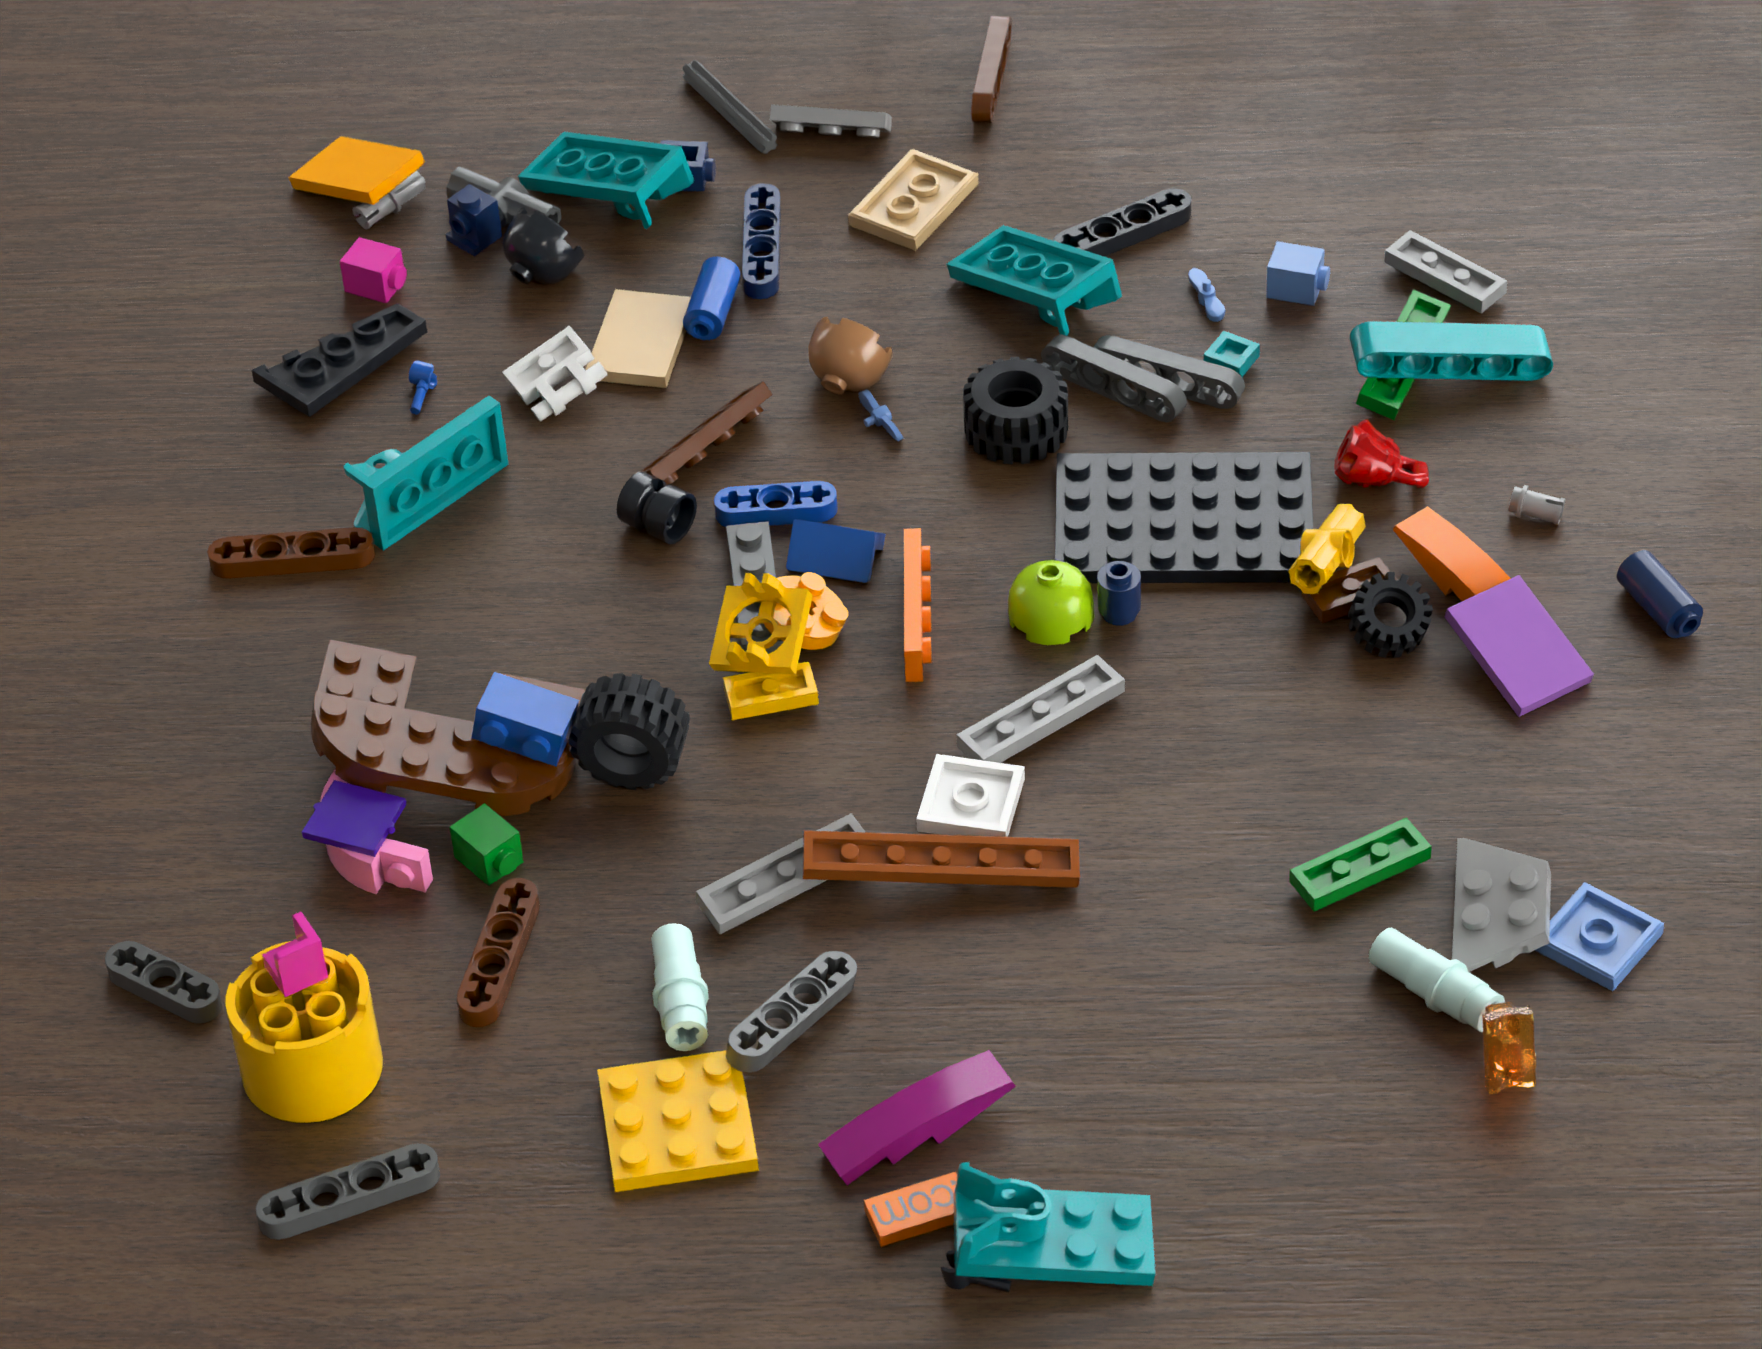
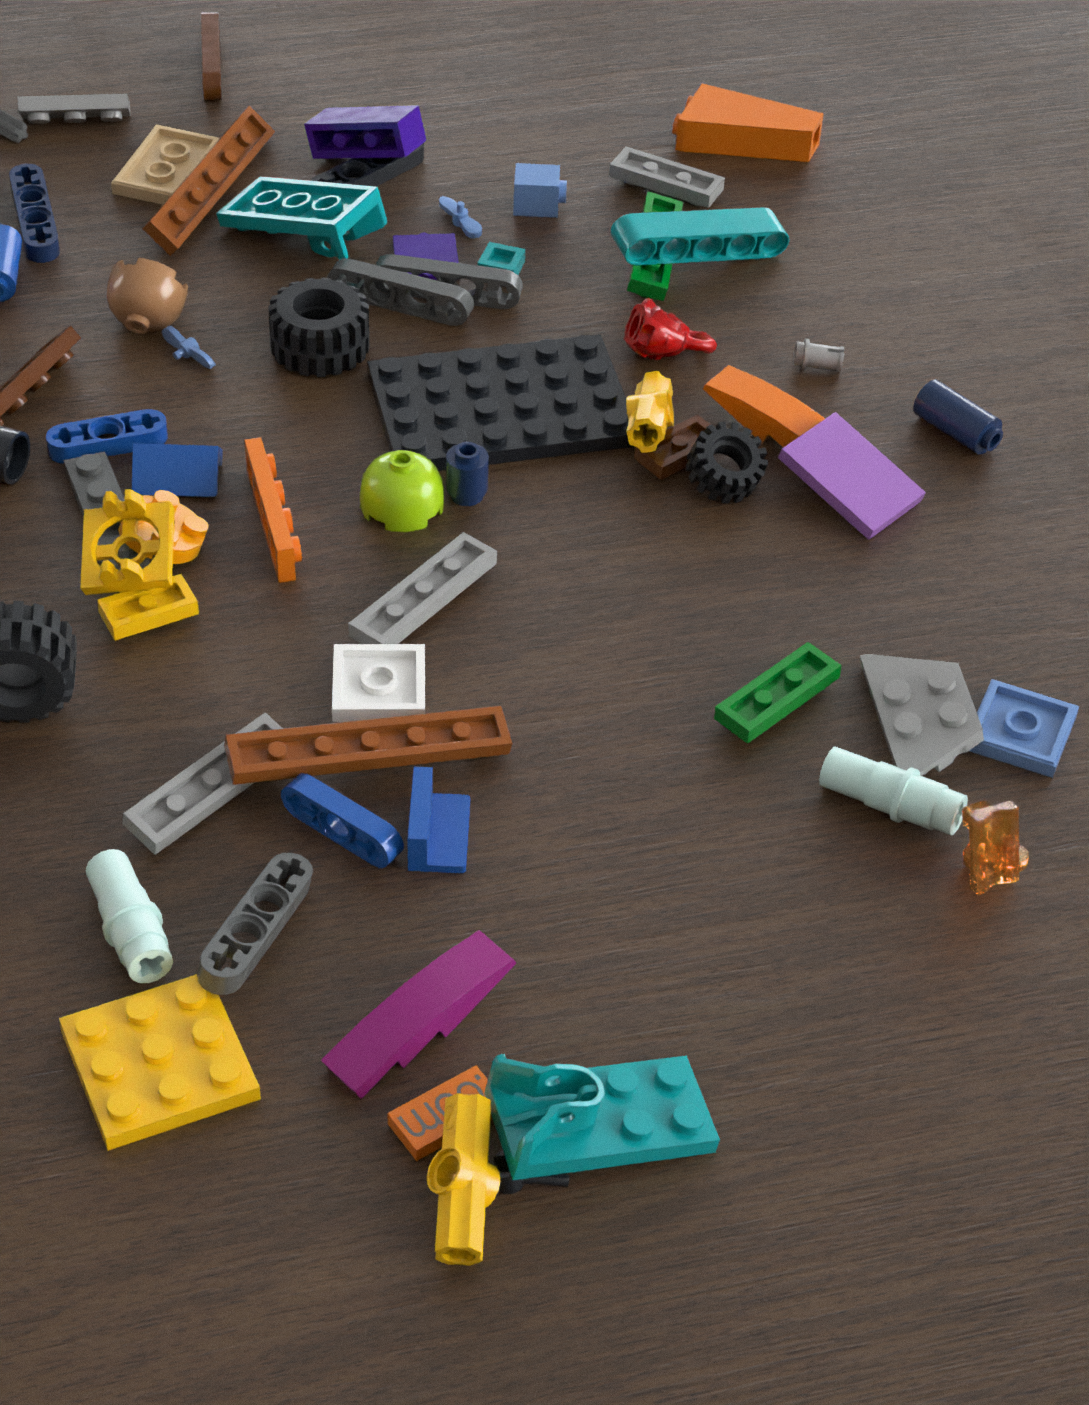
camera: 20 degrees left, 0 degrees up
(897, 928) = (342, 820): none -> blue beam
(911, 1266) = (463, 1179): none -> yellow piece
(950, 223) = (208, 181): none -> dark orange plate
(984, 947) = (436, 827): none -> blue panel
(1126, 186) = (365, 132): none -> dark purple brick
(1160, 330) = (427, 246): none -> dark purple piece
(1555, 218) = (746, 126): none -> orange slope

